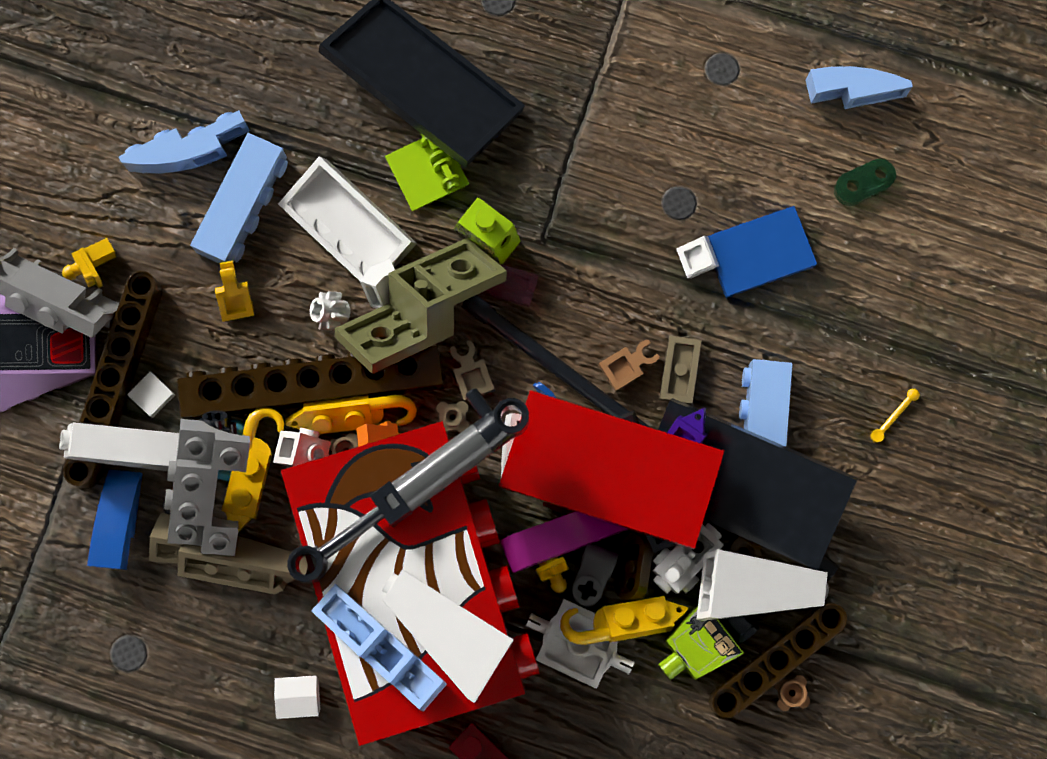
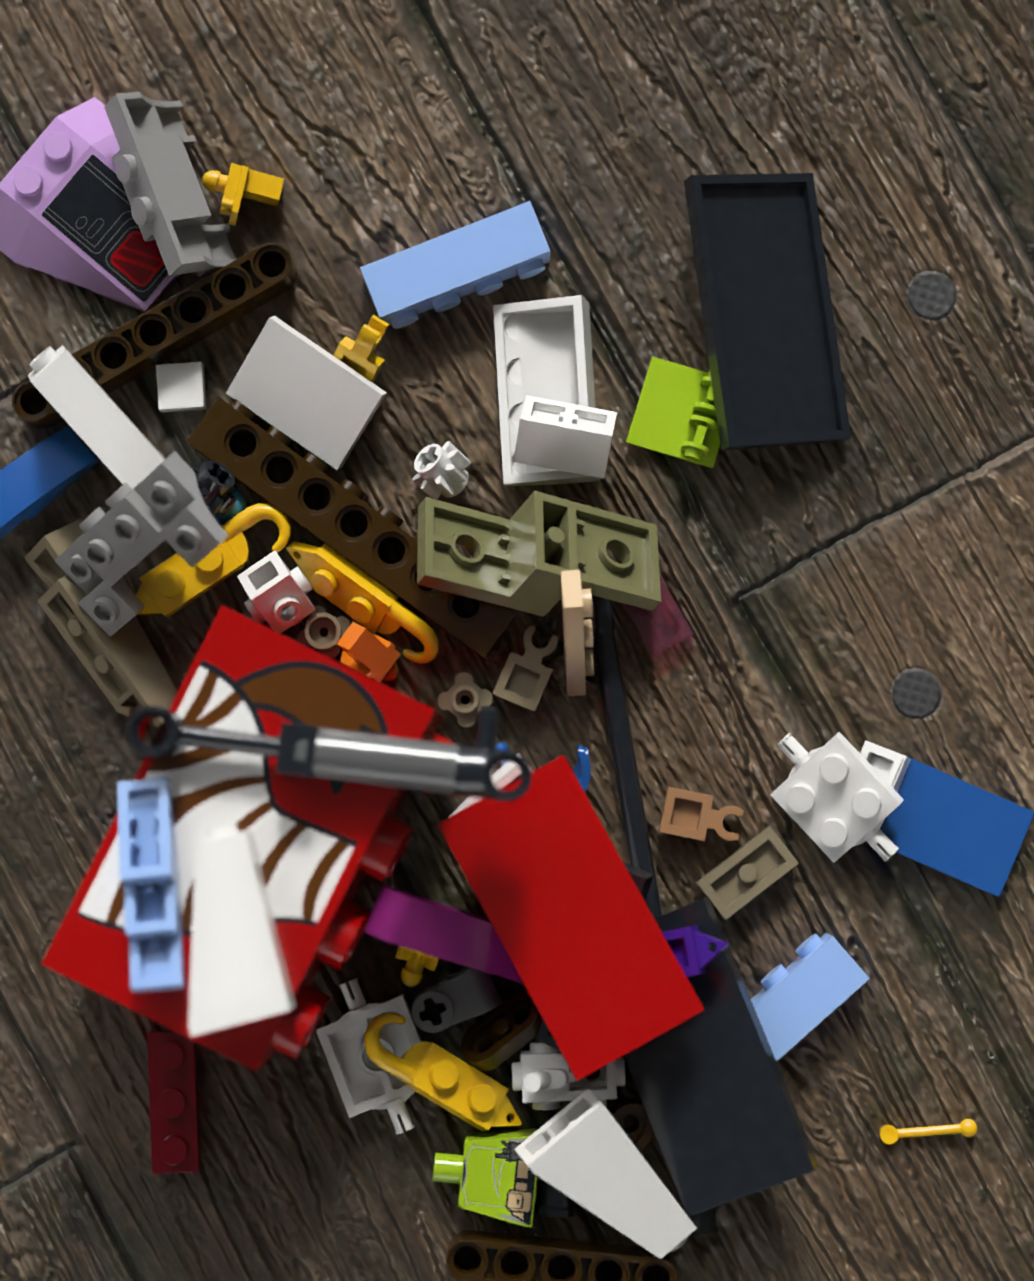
camera: 45 degrees right, 5 degrees up
(172, 153) = (436, 151): light blue slope -> none
(221, 335) = (306, 392): none -> white tile
(297, 697) = (43, 839): white piece -> none
(376, 283) = (515, 486): white piece -> none
(378, 233) = (564, 436): none -> white hinge
(477, 325) = (576, 632): none -> tan plate
(488, 230) = (684, 539): lime torso -> none
(688, 289) = (837, 797): none -> white plate

